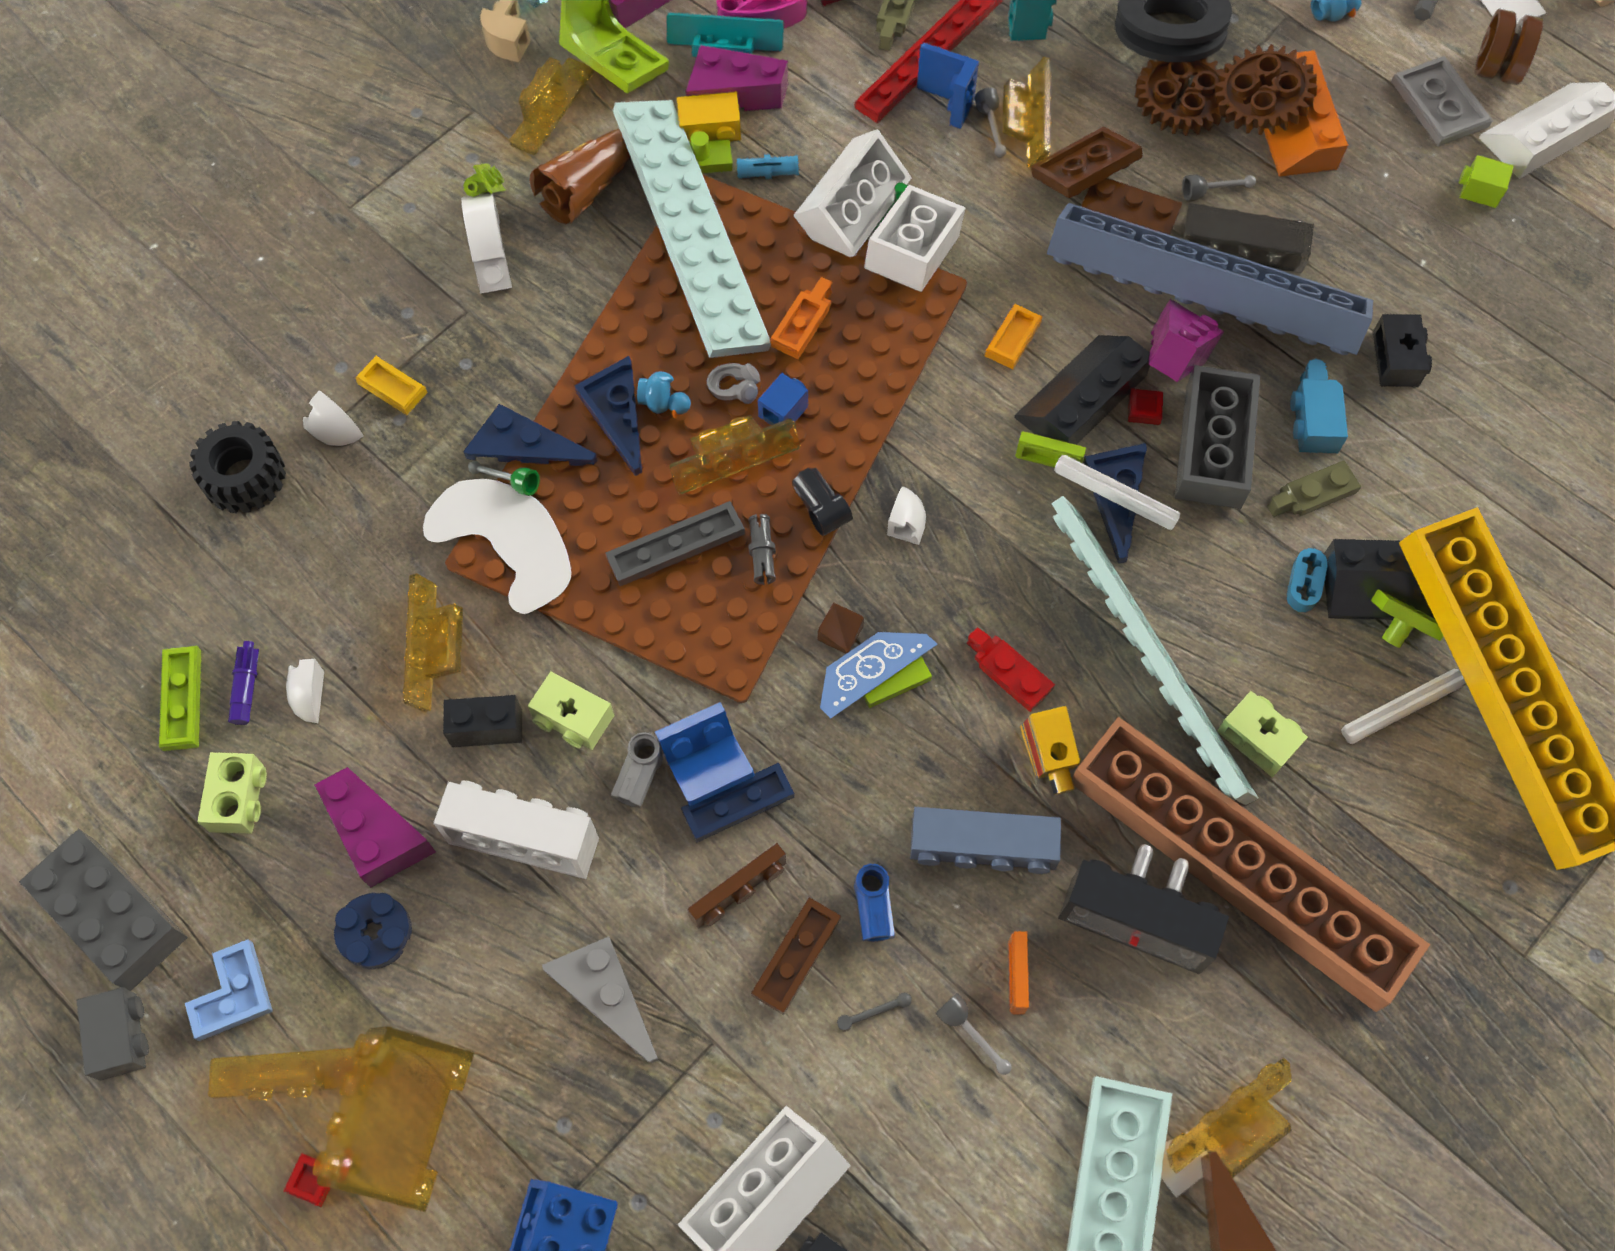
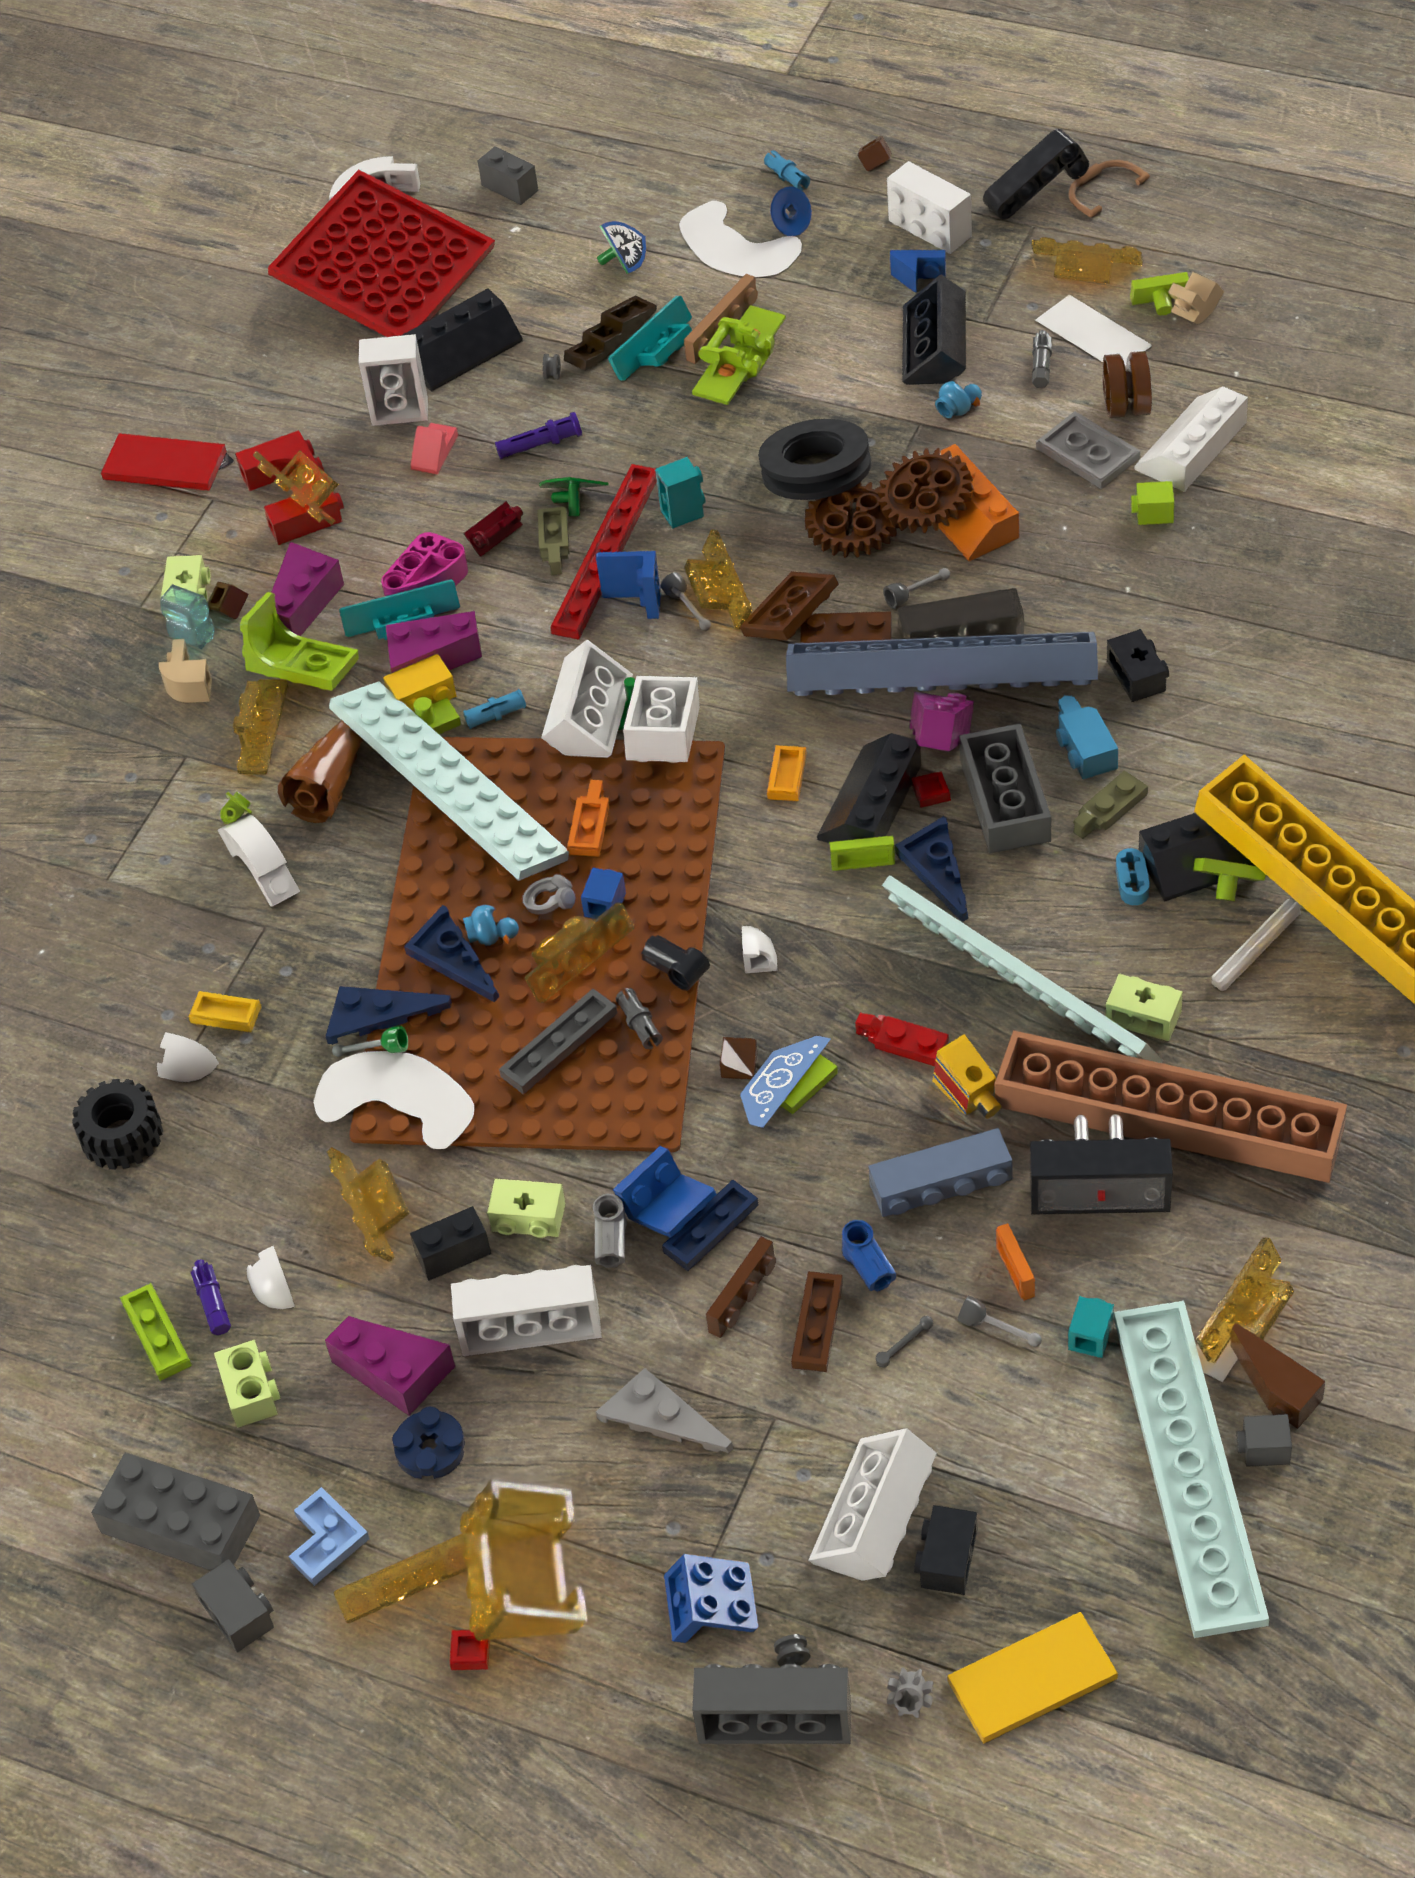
camera: 15 degrees left, 15 degrees down
(1066, 1080) = (1091, 1326): none -> teal brick
(1117, 492) = (935, 862): white axle -> none

